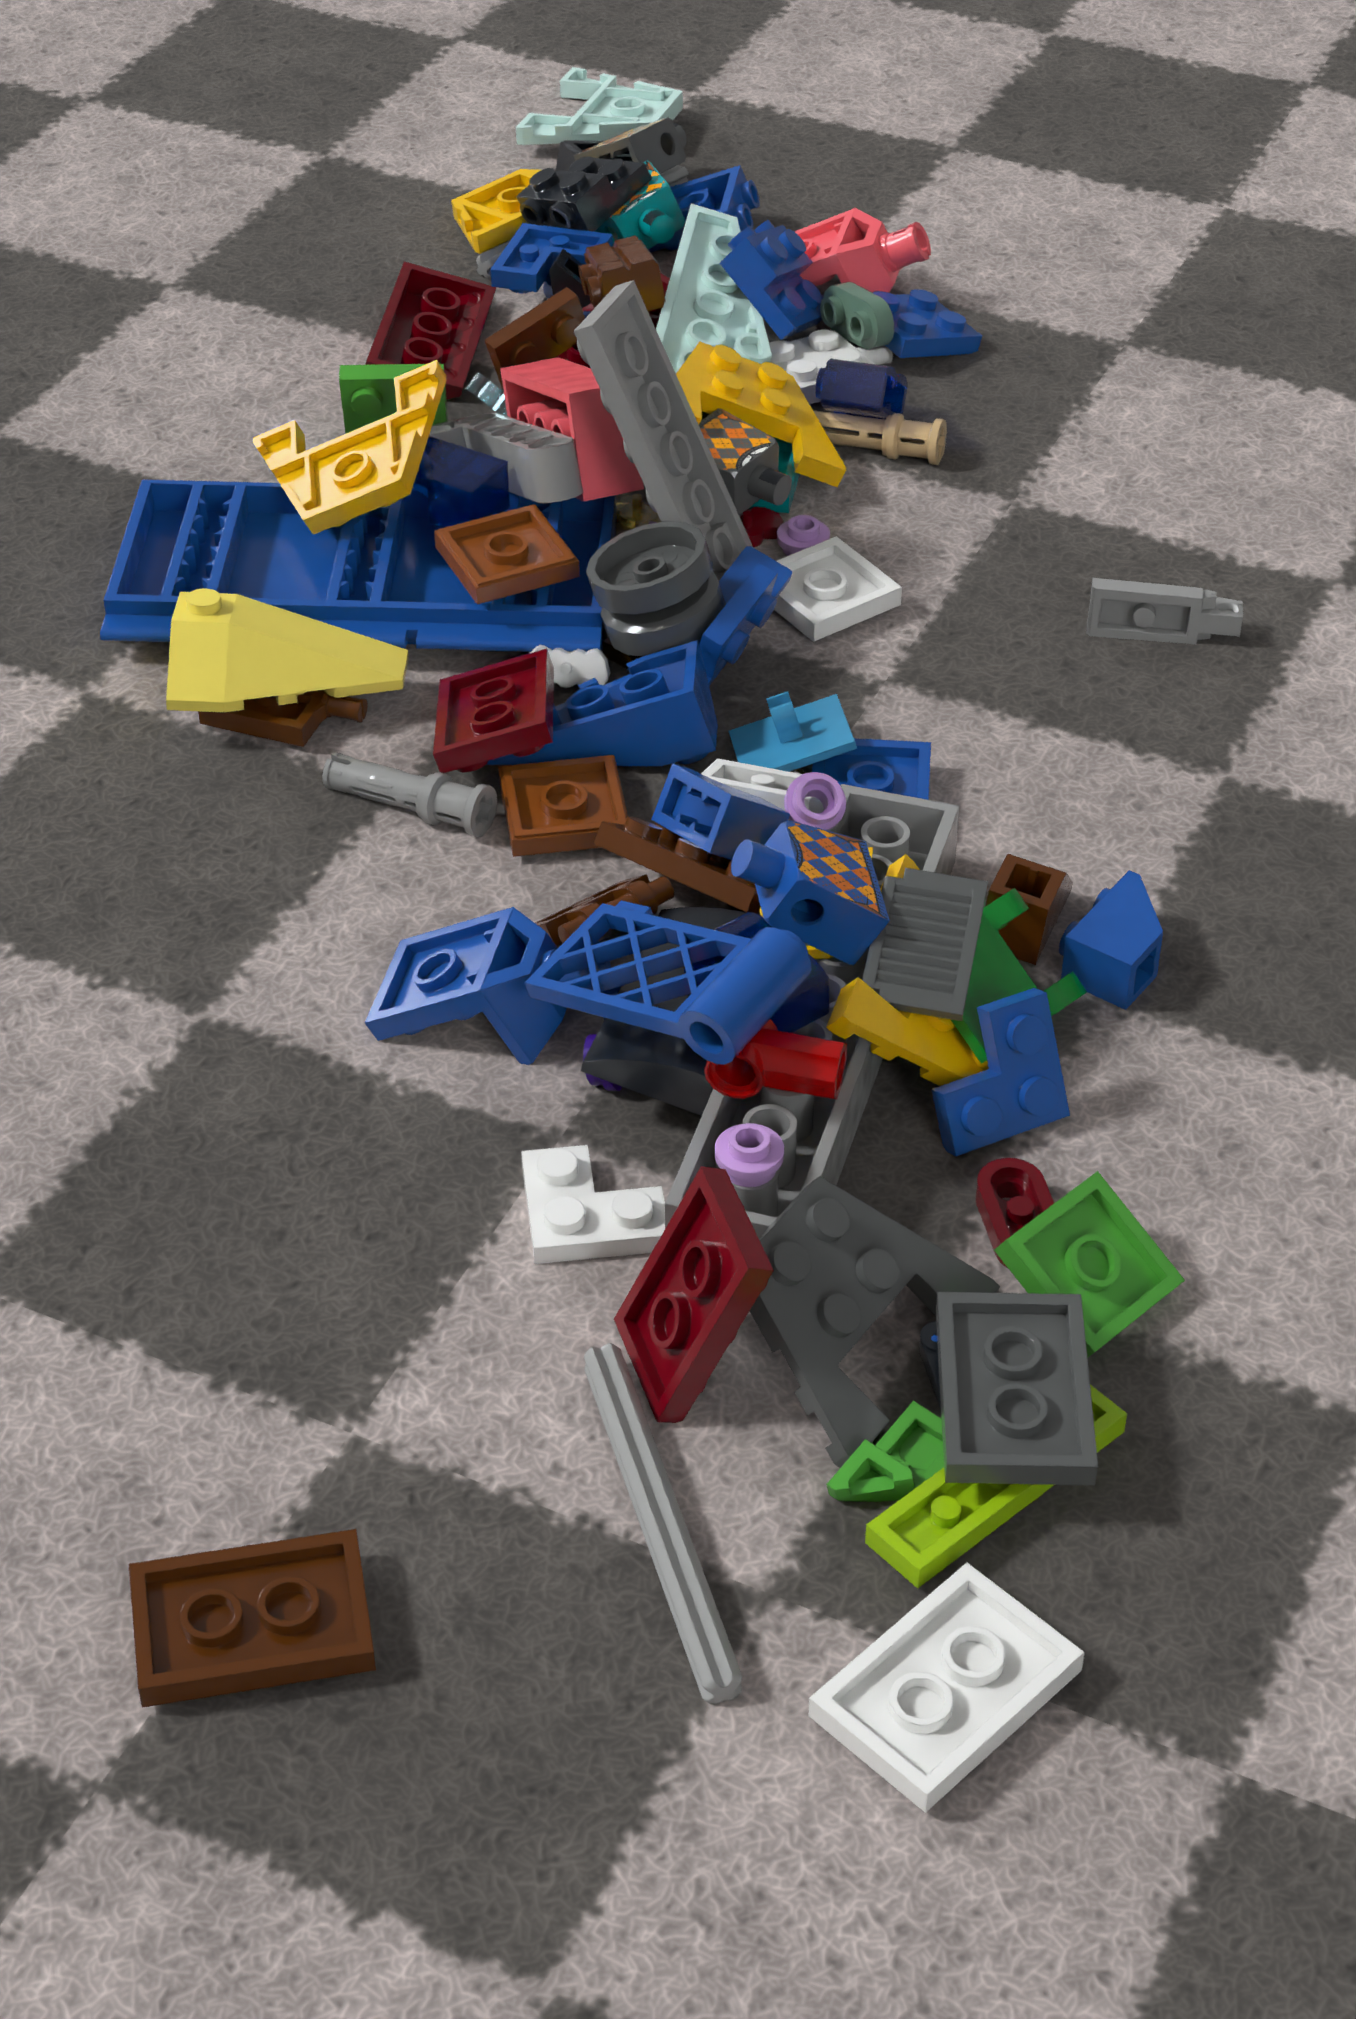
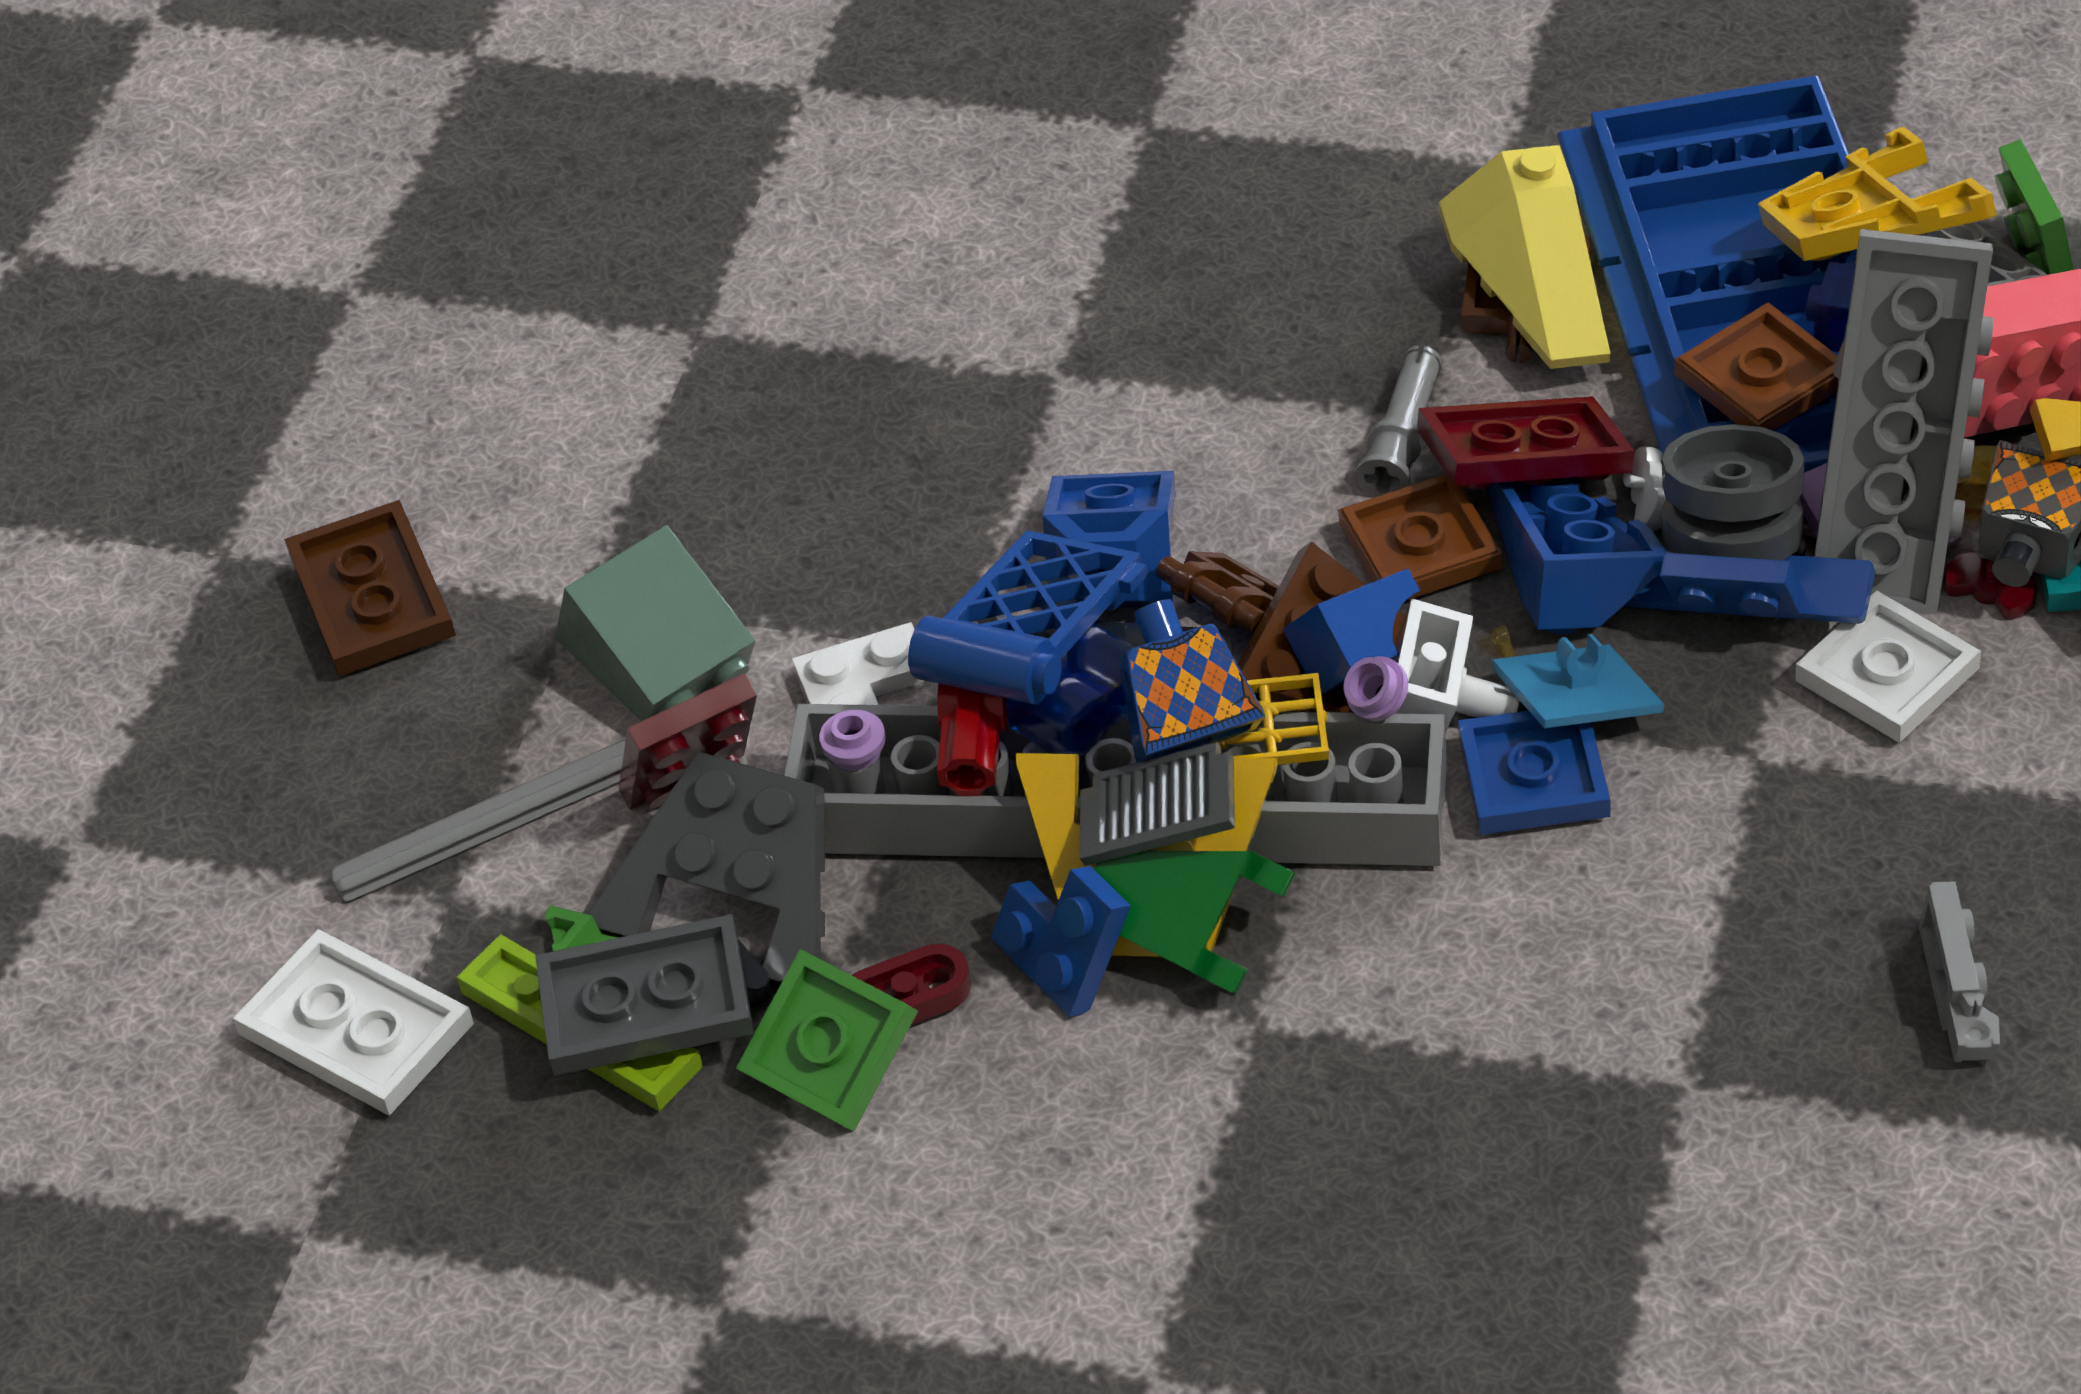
camera: 85 degrees right, 5 degrees up
(457, 1345) = (653, 627): none -> sand green slope
(801, 533) = (1994, 630): lavender plate -> none
(1043, 891) = (1355, 917): reddish brown slope -> none
(1115, 943) = (1322, 1008): blue slope -> none

